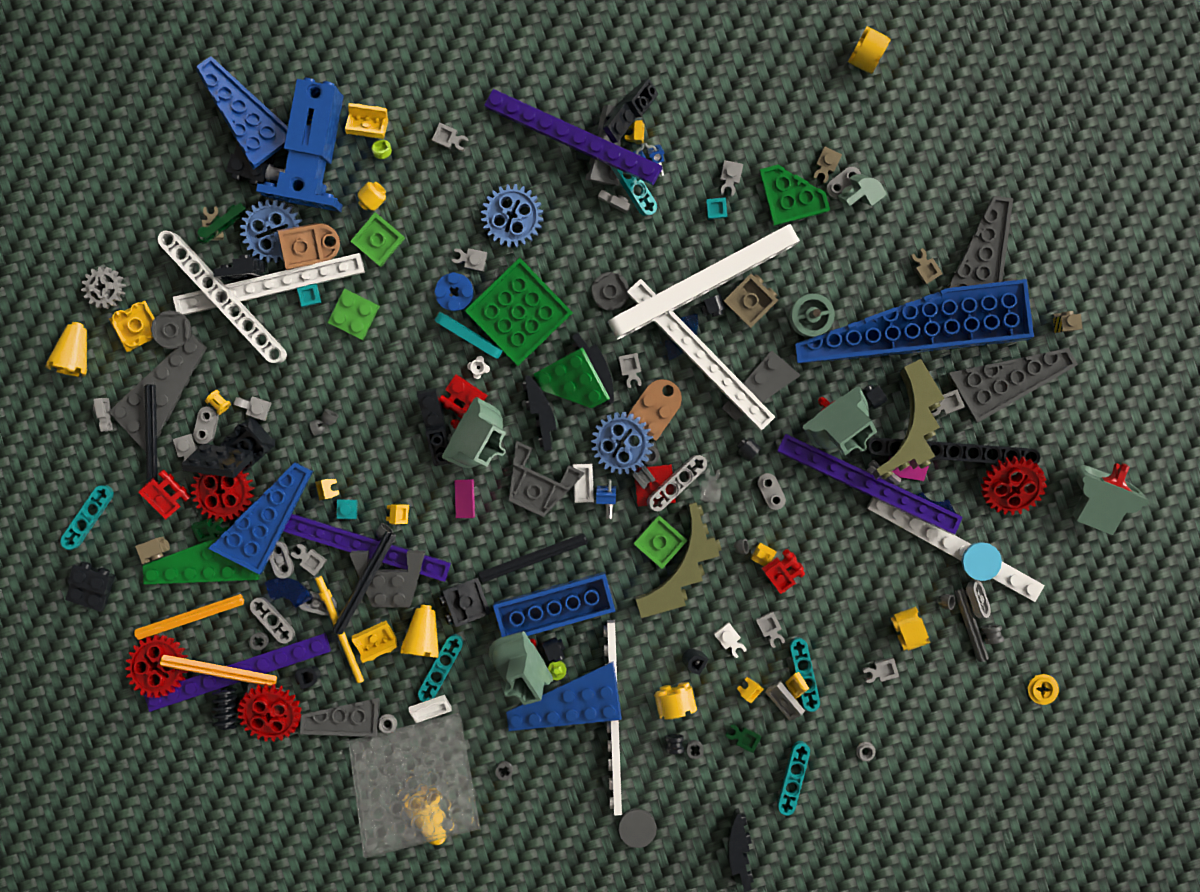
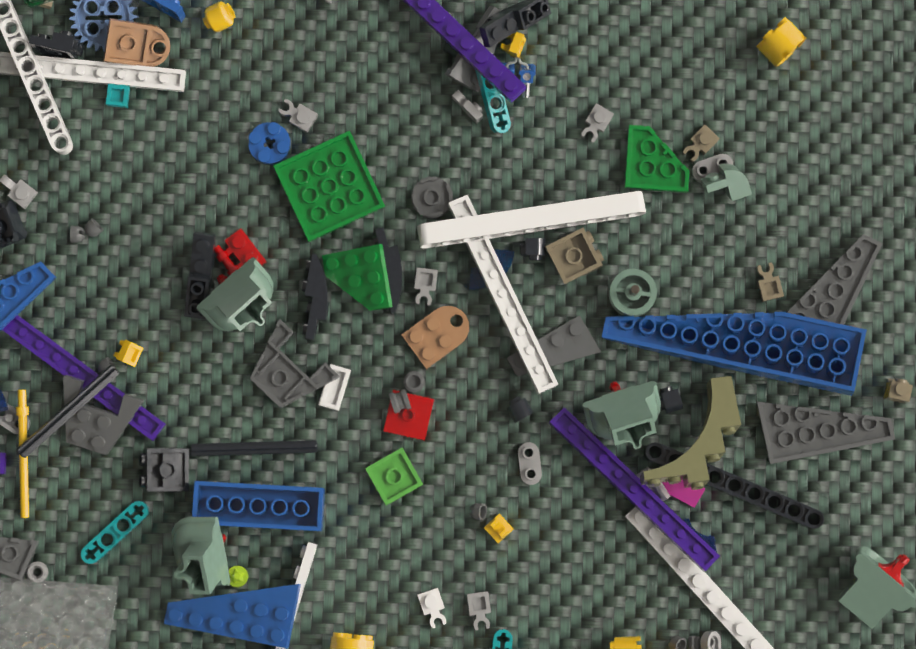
camera: 15 degrees right, 5 degrees down
(311, 560) = (20, 371): light grey plate -> none
(324, 490) = (60, 301): yellow tile -> none
(347, 509) = (76, 330): teal plate -> none
(353, 314) = (157, 130): bright green plate -> none
(375, 641) = (56, 479): yellow bracket -> none
(378, 239) = (209, 62): bright green plate -> none
(422, 634) = (108, 488): yellow cone -> none
(430, 709) = (88, 571): white tile -> none
(464, 498) = (204, 361): dark pink slope -> none
(468, 335) = (268, 192): teal beam -> none
(478, 362) = (261, 226): white plate -> none
(496, 210) = (371, 97): medium blue gear -> none
(554, 649) = (242, 552): black plate -> none
(607, 496) = (355, 408): blue piece -> none
(608, 433) = (379, 343): medium blue gear -> none
(675, 481) = (433, 422): light grey beam -> none
(694, 660) = (387, 615): black plate -> none
(699, 548) = (433, 497): olive arch -> none
(710, 489) = (465, 438): clear plate -> none
(716, 208) = (571, 149): teal plate -> none
(779, 575) = (506, 551): red plate -> none
(951, 403) = (748, 433): light grey plate -> none
(981, 561) = (726, 612): medium azure tile -> none
(1013, 485) = (775, 527): red gear -> none

